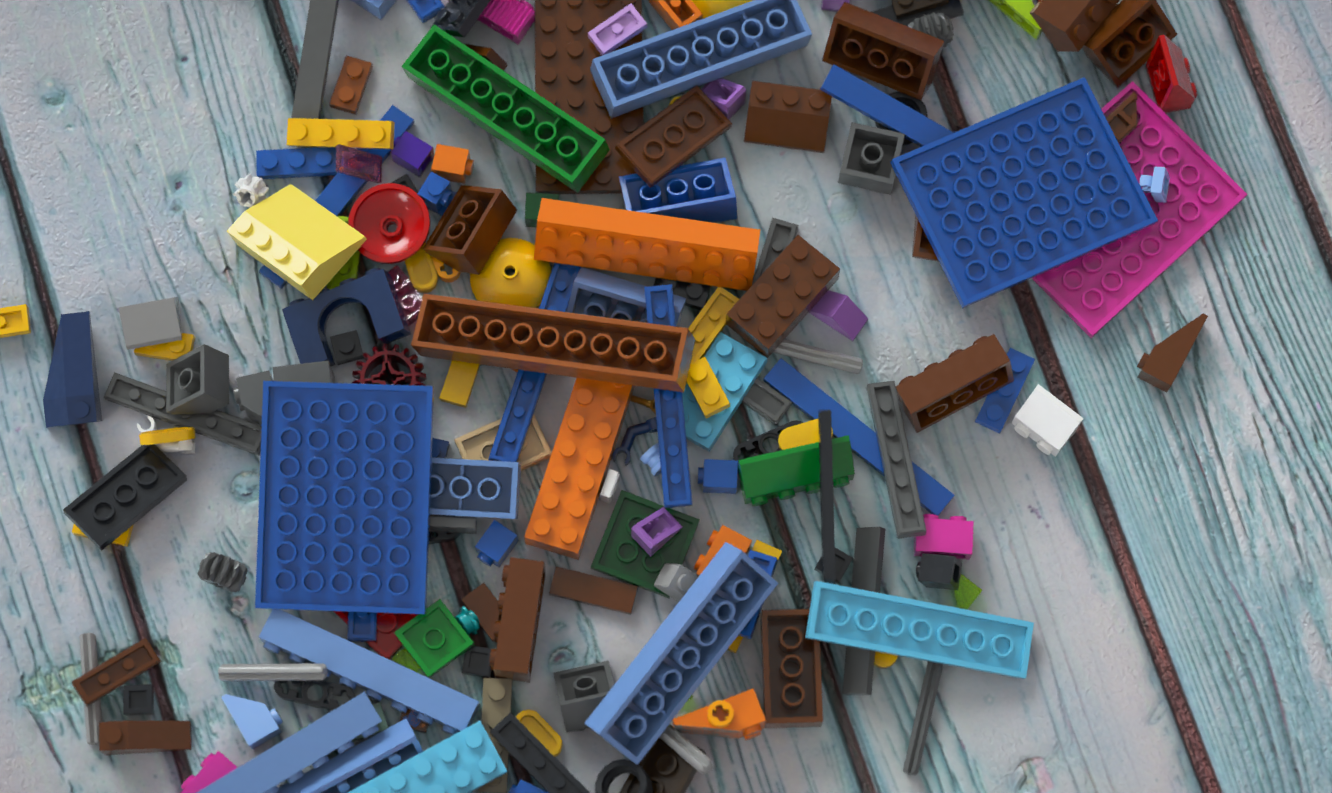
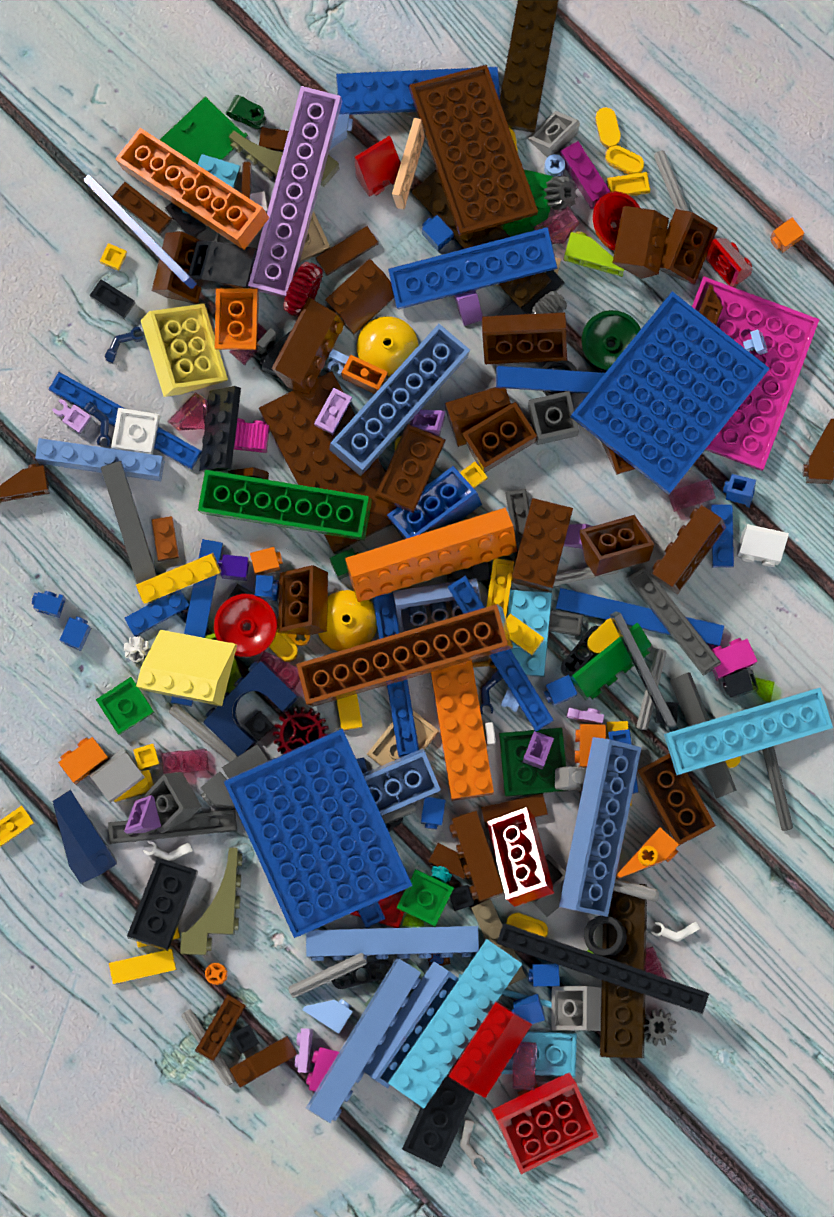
camera: 25 degrees left, 5 degrees up
(65, 557) = (142, 966): none -> yellow tile
(123, 287) = (83, 759): none -> orange brick
(143, 601) = (216, 970): none -> orange wheel
(155, 384) = (143, 816): none -> medium lavender slope
(167, 435) = (170, 849): yellow tile -> none
(179, 93) = (48, 603): none -> blue brick
(186, 540) = (220, 915): none -> olive arch
(191, 141) = (75, 633): none -> blue brick
(197, 319) = (146, 756): none -> yellow plate
(204, 250) = (125, 706): none -> green plate
(205, 739) = (303, 1059): none -> lavender plate
(222, 572) = (257, 924): dark grey gear -> none
(240, 346) = (185, 761): none -> clear pink slope
(275, 319) = (202, 732): none -> light grey axle
(358, 163) = (203, 594): clear pink slope -> none
(569, 644) = (520, 857): none -> red brick
(740, 523) = (590, 716): none -> lavender plate
(744, 181) = (474, 475): none -> yellow plate
(796, 151) = (499, 437): none -> reddish brown slope
(841, 514) = (647, 704): none -> light grey axle
(870, 337) = (615, 545): none -> reddish brown slope
(981, 86) = (604, 328): none -> dark green dish
(988, 322) = (692, 495): none -> clear pink slope
(1053, 346) = (740, 489): none -> blue brick
(1256, 80) = (786, 235): none -> orange brick

